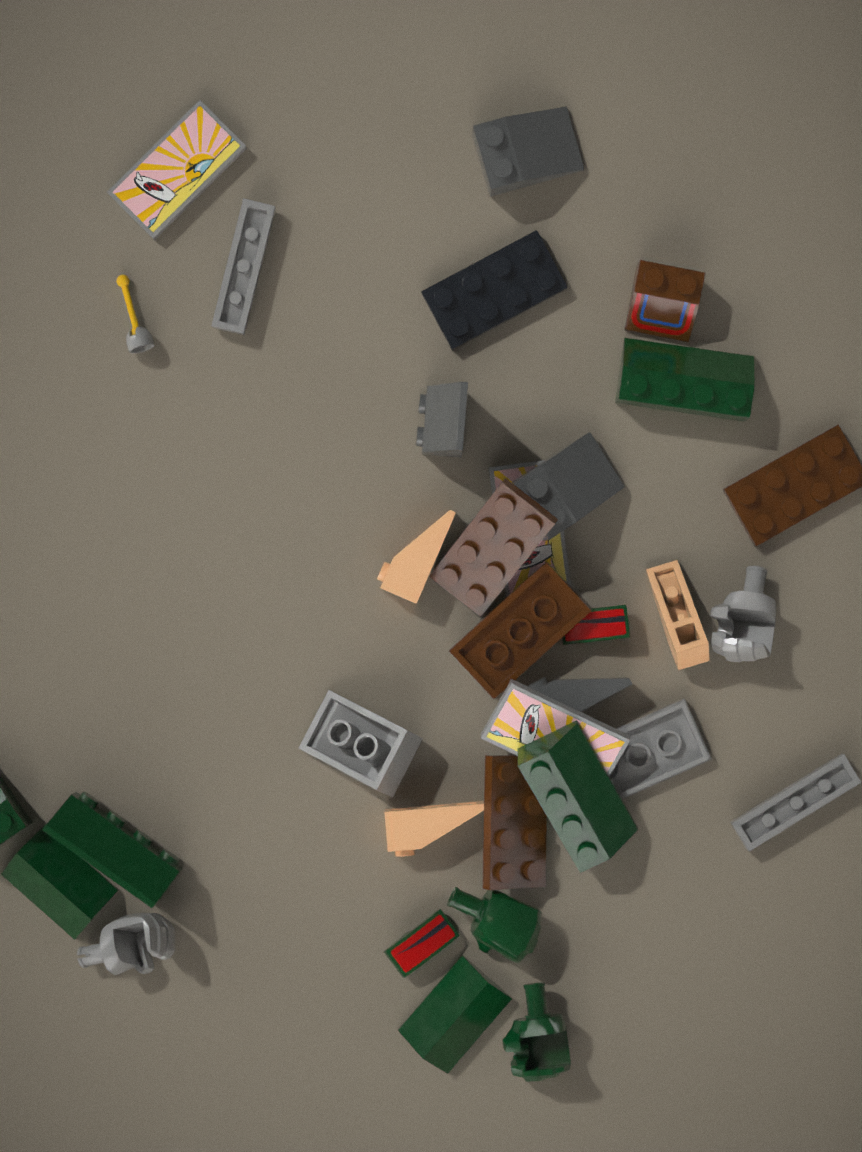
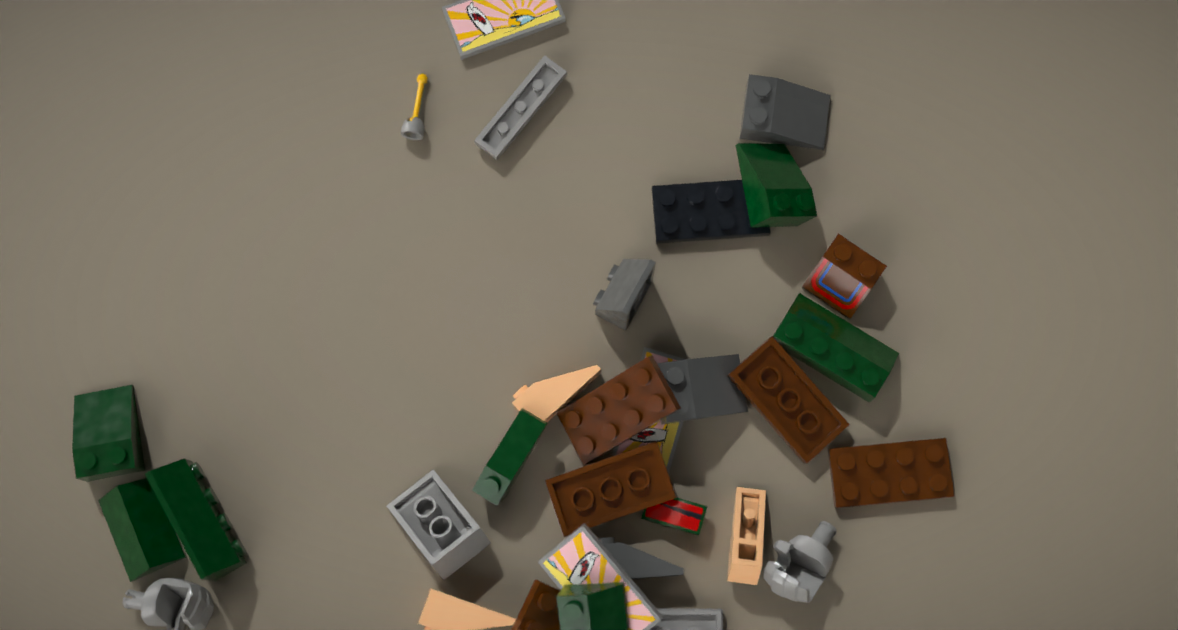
camera: 30 degrees right, 10 degrees down
(403, 644) = (509, 457): none -> dark green slope
(550, 235) = (774, 186): none -> dark green slope
(661, 457) = (788, 400): none -> reddish brown plate

